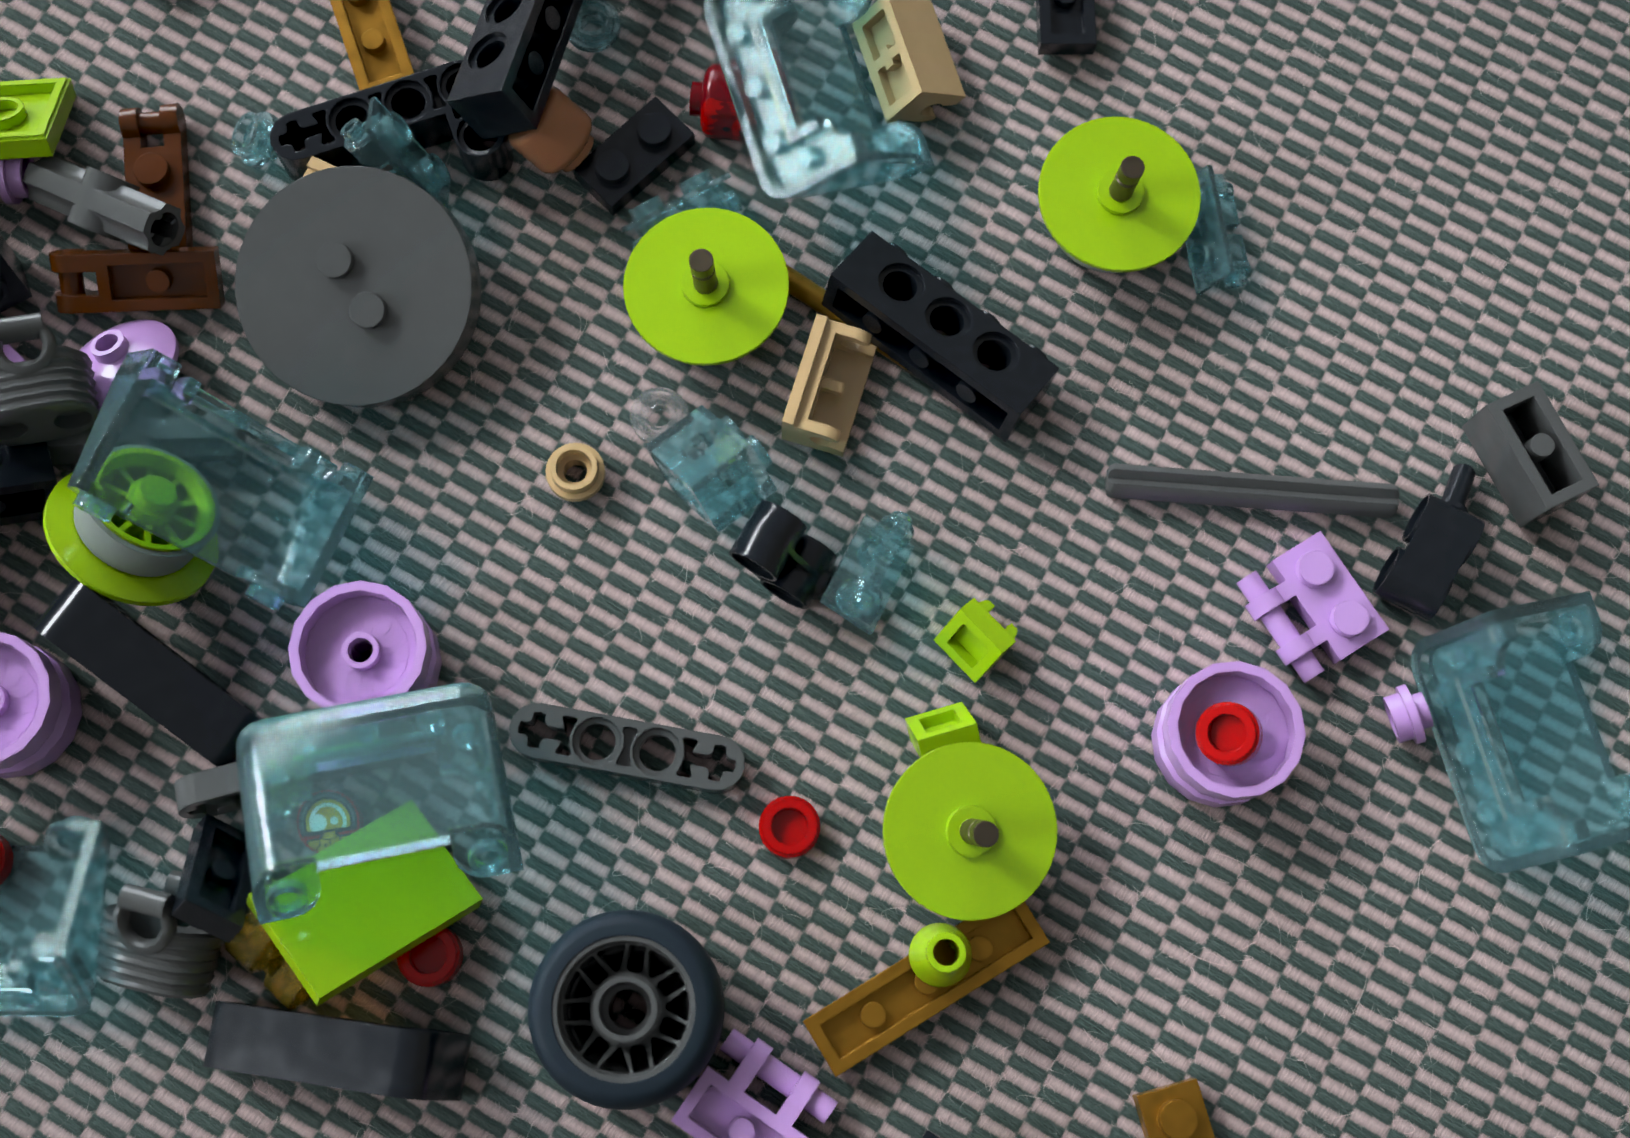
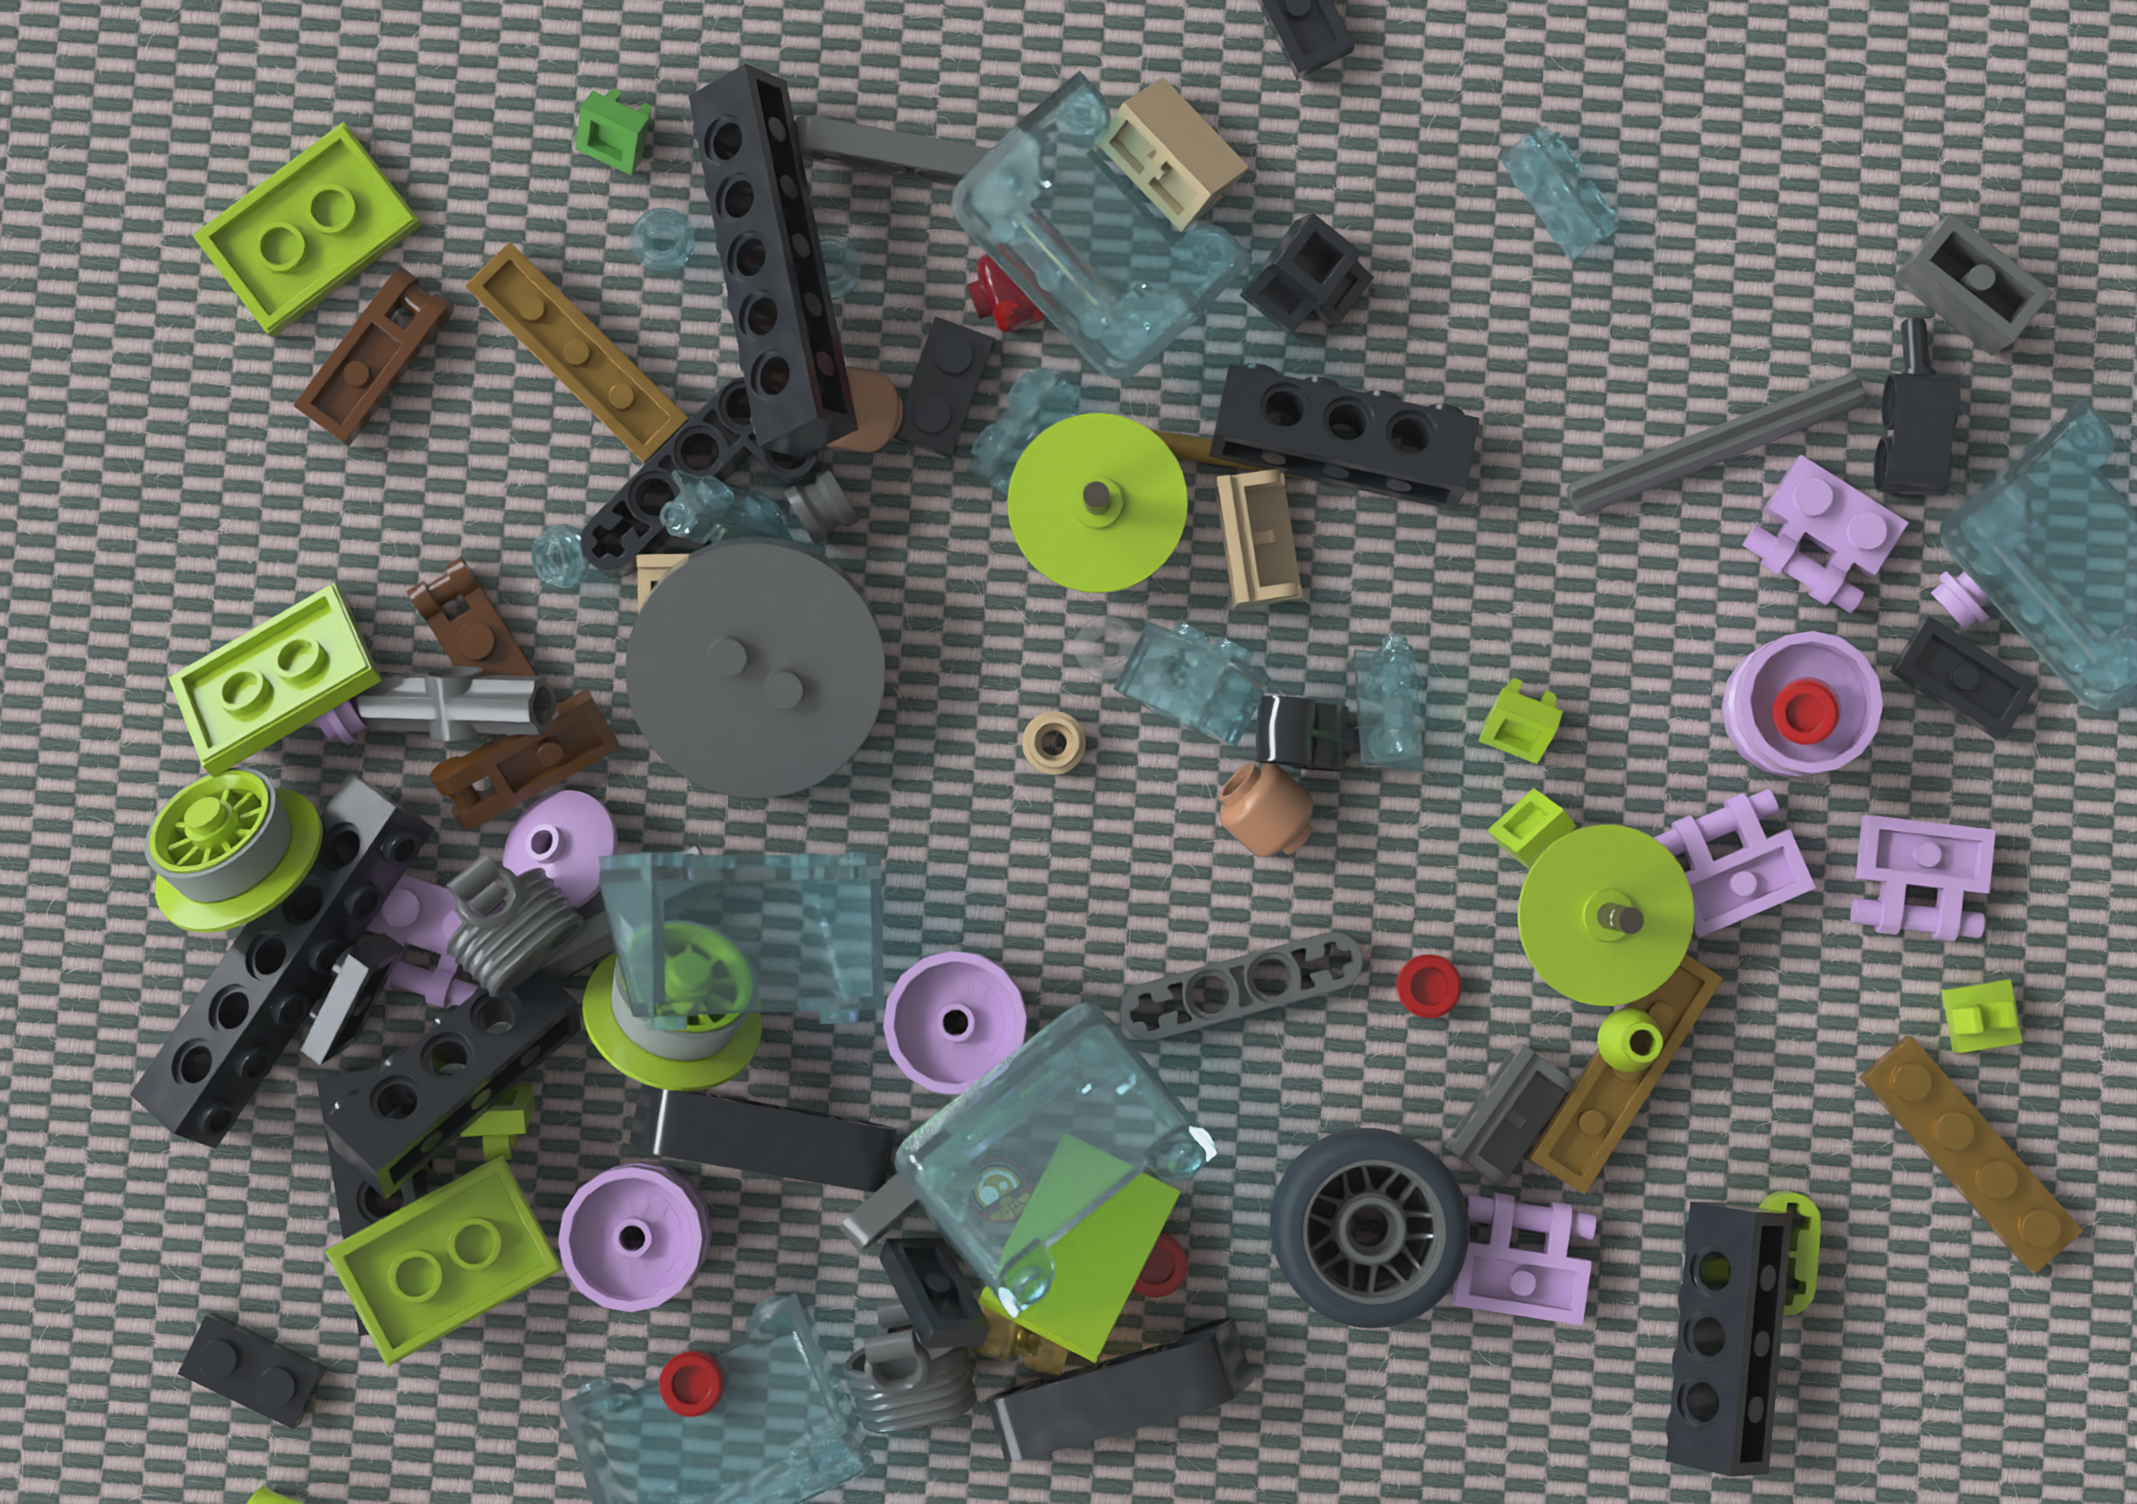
camera: 20 degrees left, 10 degrees up
(485, 195) = (821, 506): none -> dark grey wheel
(723, 608) = (1266, 810): none -> nougat head
(805, 974) = (1509, 1114): none -> dark grey hinge
(973, 197) = (1307, 274): none -> black brick
(1109, 866) = (1743, 880): none -> lavender plate
(1118, 195) = (1457, 209): lime piece -> none
(1268, 1092) = (1982, 1016): none -> lime tile
(1280, 923) = (1927, 856): none -> lavender plate
(1380, 784) = (1963, 678): none -> black plate

